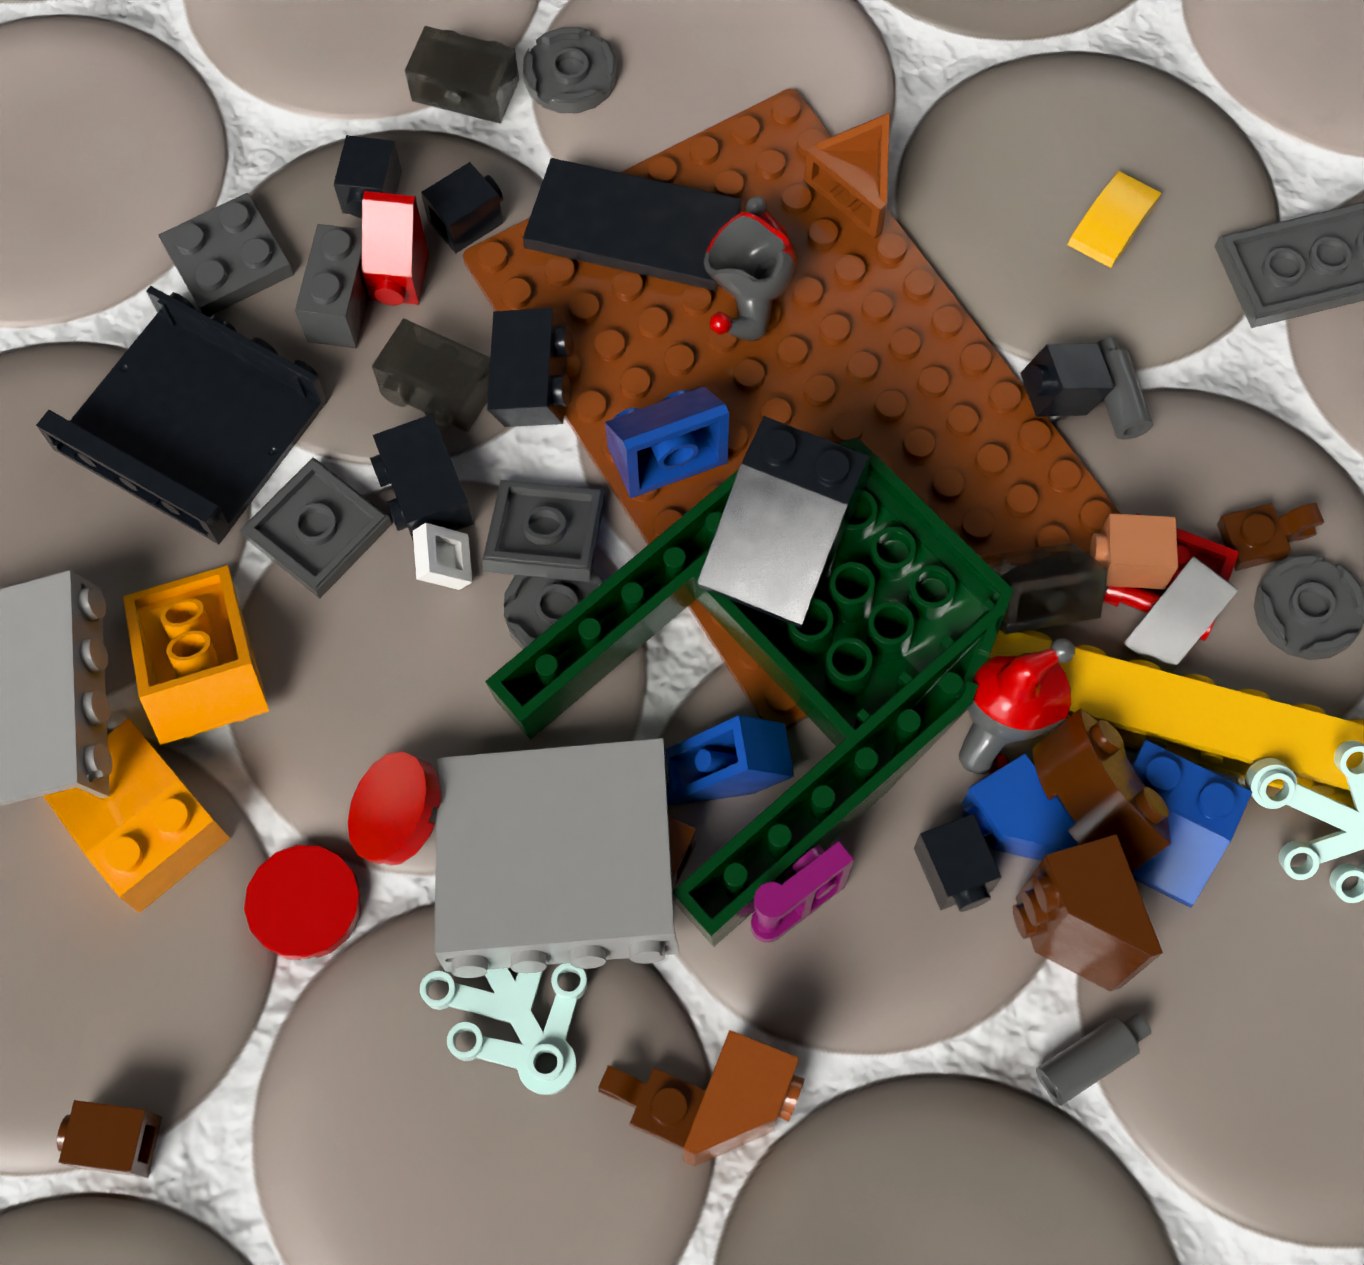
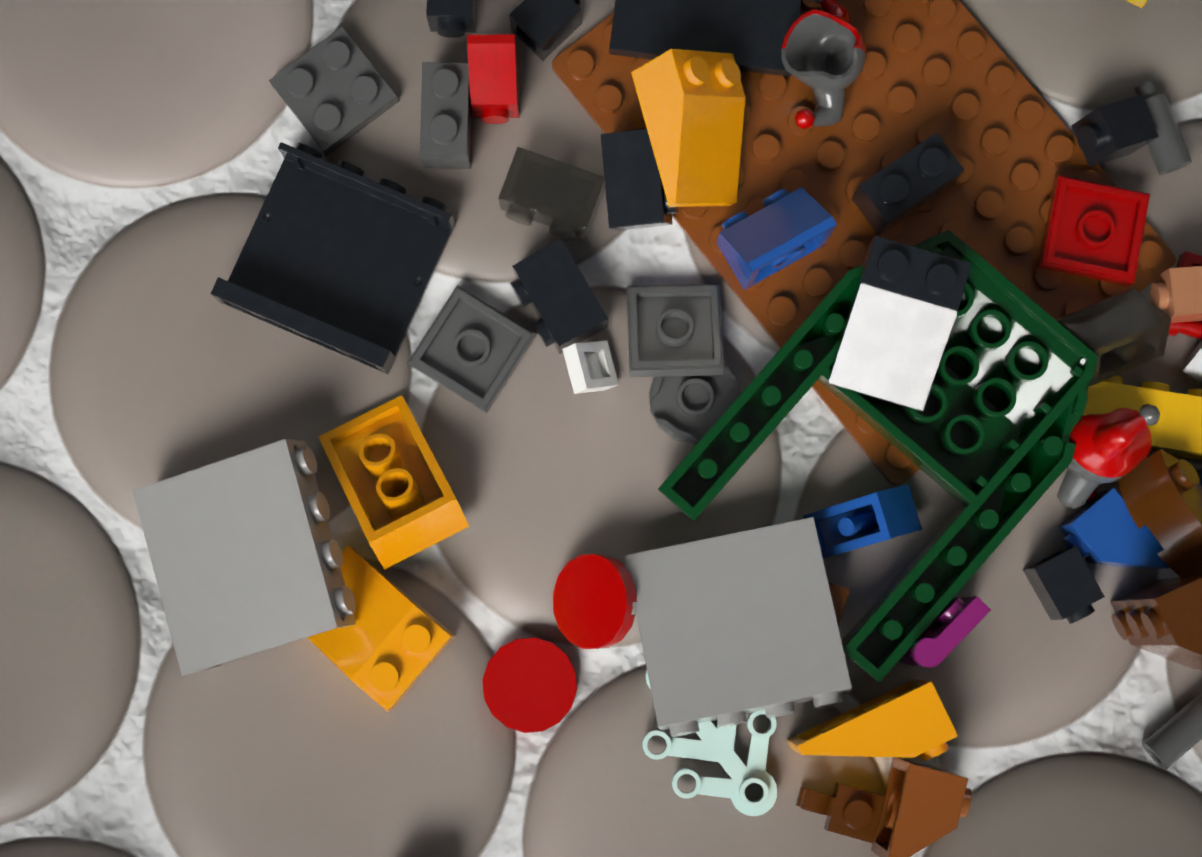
camera: 10 degrees left, 15 degrees up
(596, 311) = (694, 124): none -> light orange slope
(707, 995) = (894, 724): none -> light orange slope
(830, 396) = (907, 184): none -> black brick
(1034, 480) = (1094, 230): none -> red tile

